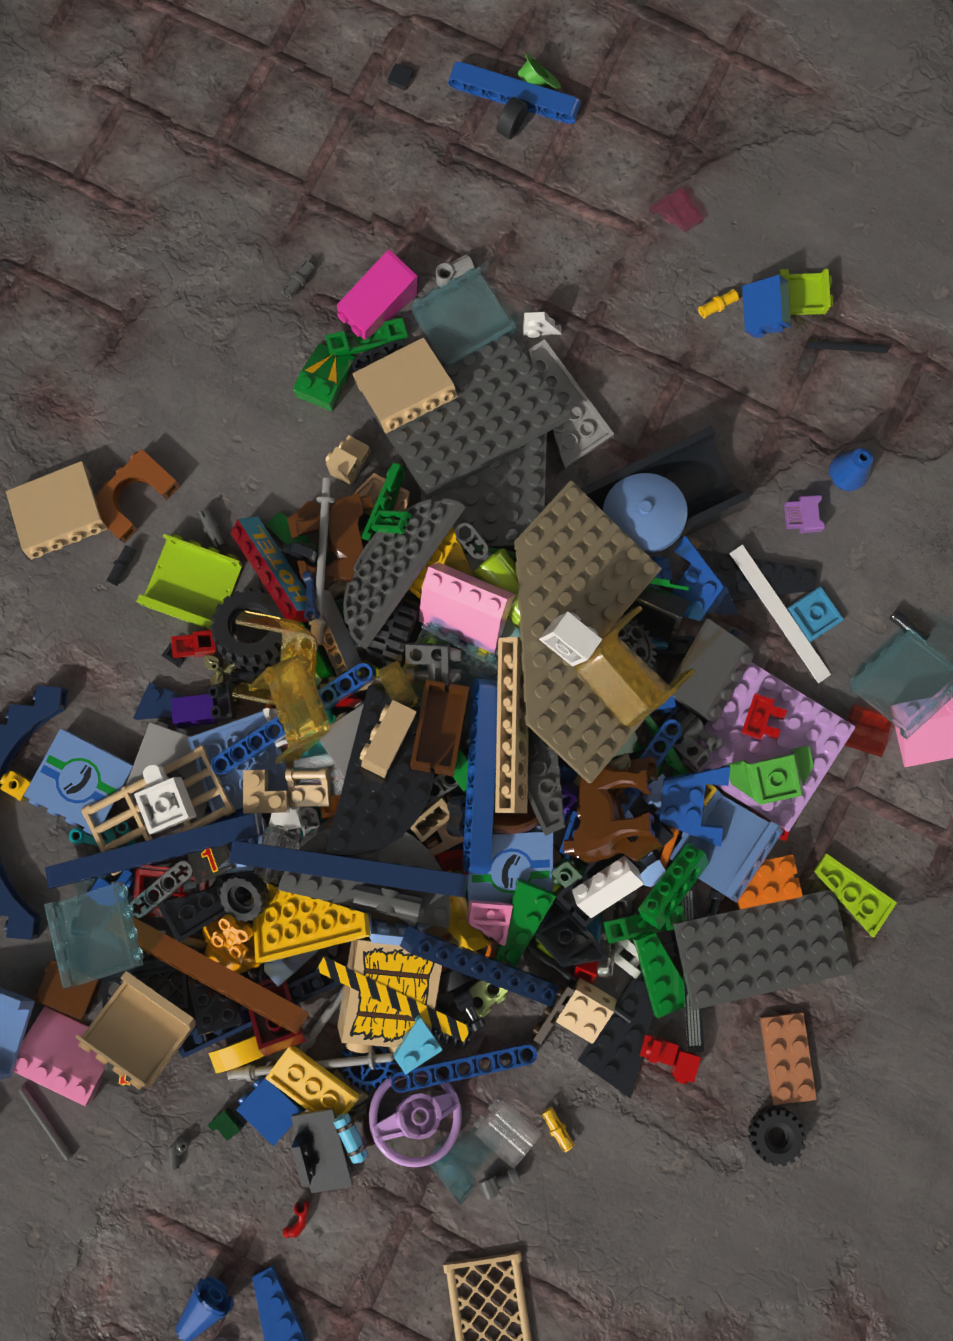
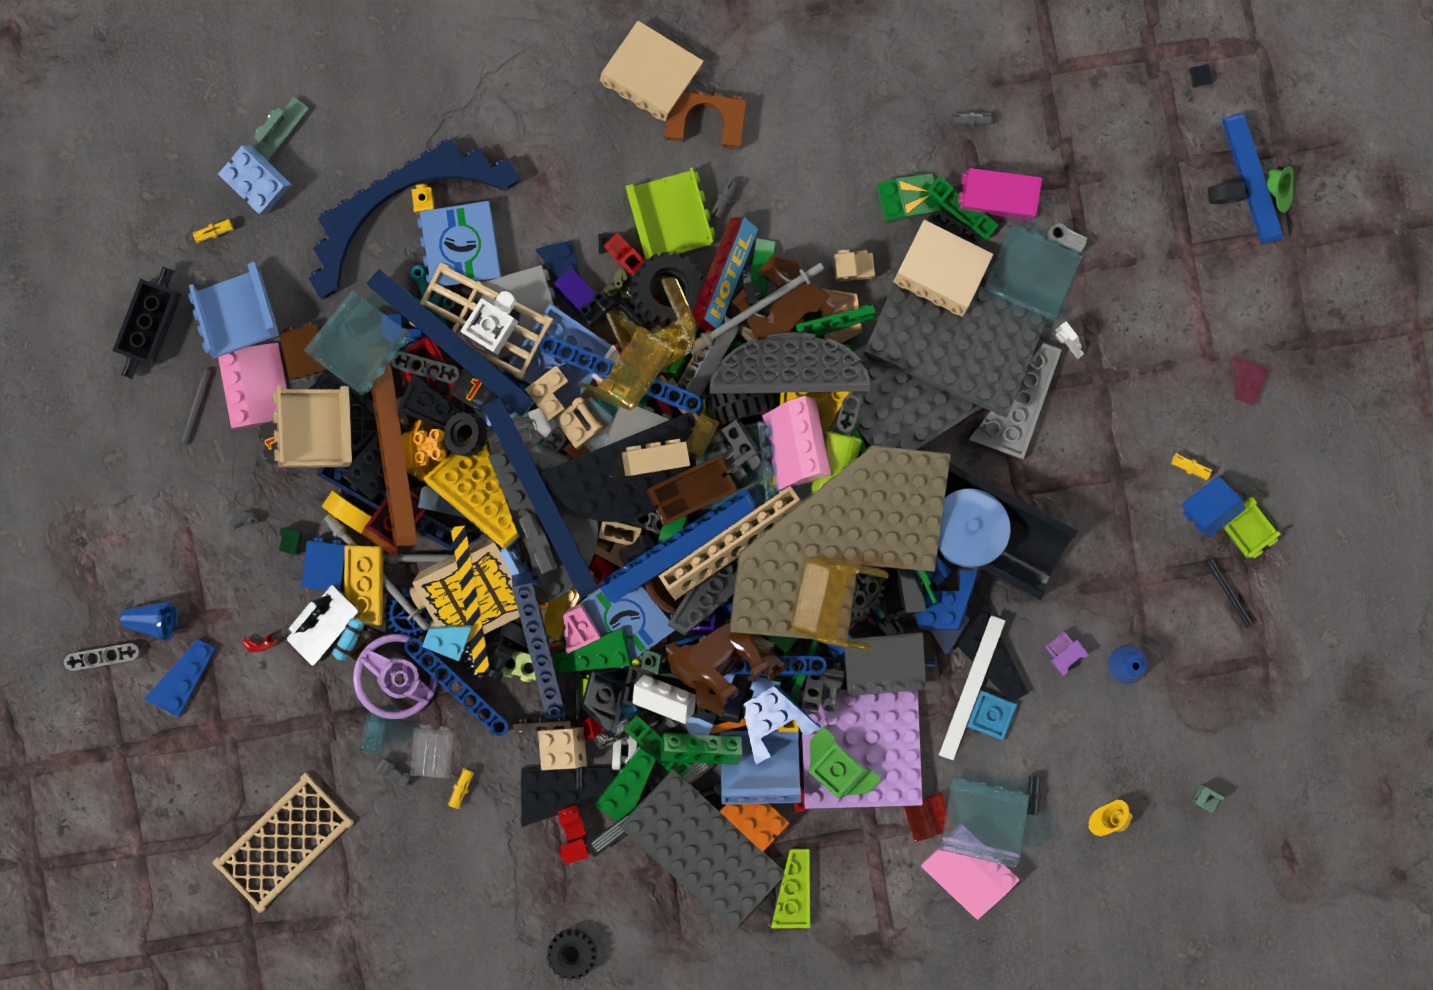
camera: 55 degrees right, 5 degrees up
(121, 565) = (644, 151): black pin -> none
(311, 607) = (714, 327): dark blue piece -> none
(389, 525) = (827, 349): green tile -> none
(571, 638) = (824, 541): white brick -> none
(758, 716) = (875, 725): red plate -> none
(788, 1058) = (634, 925): nougat plate -> none

